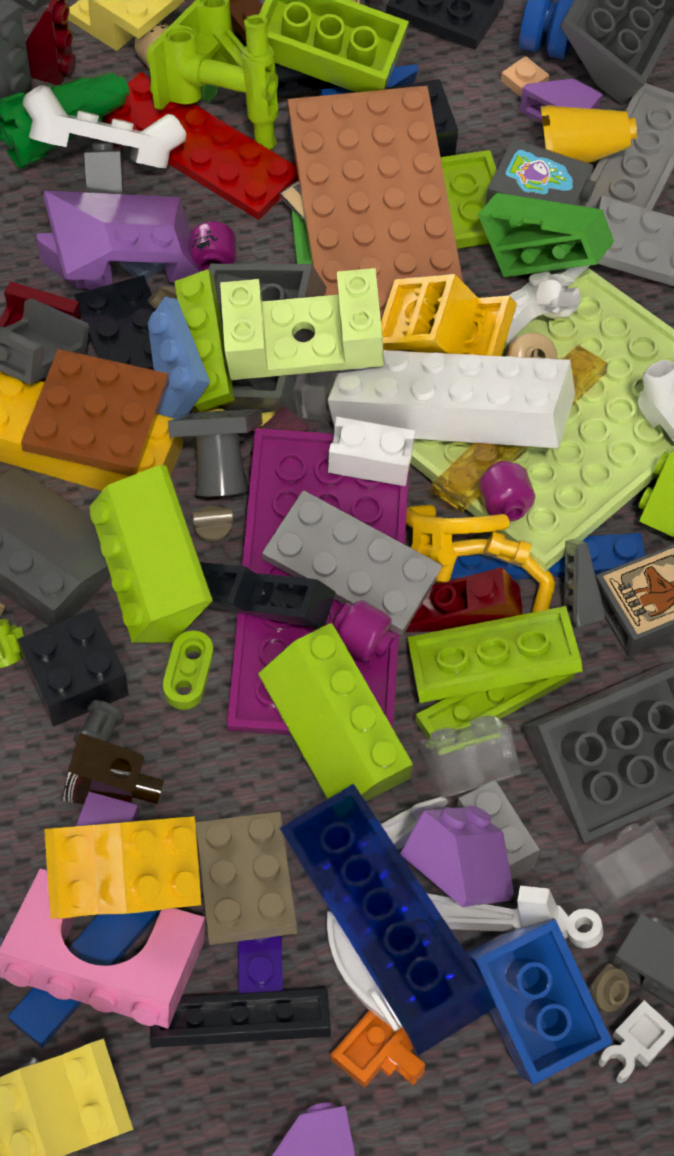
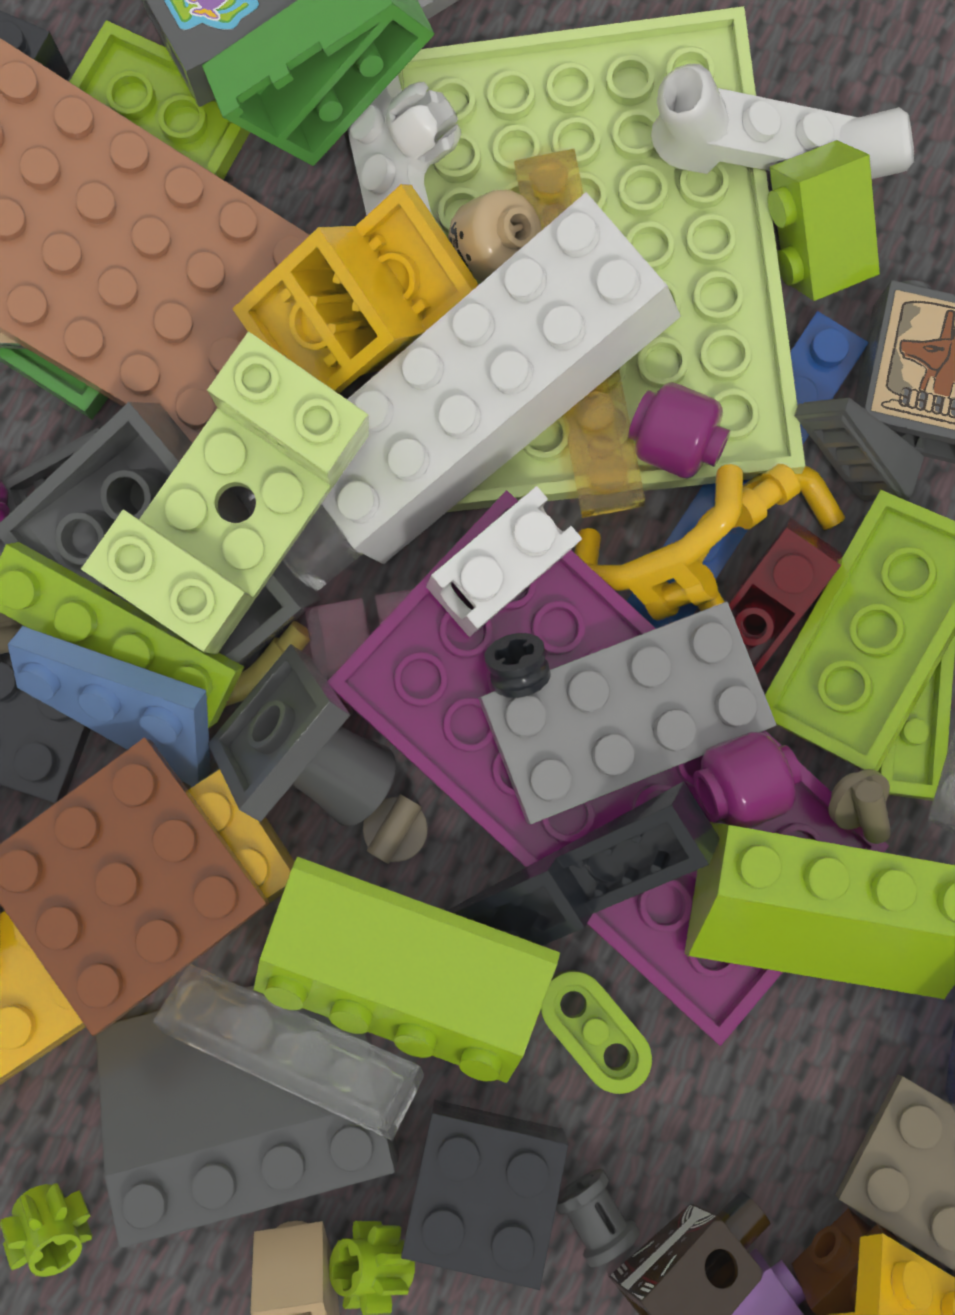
camera: 50 degrees left, 20 degrees up
(74, 536) = (291, 1050): none -> clear plate
(330, 492) = (517, 665): none -> black bush
(399, 697) = (861, 802): none -> dark tan plate

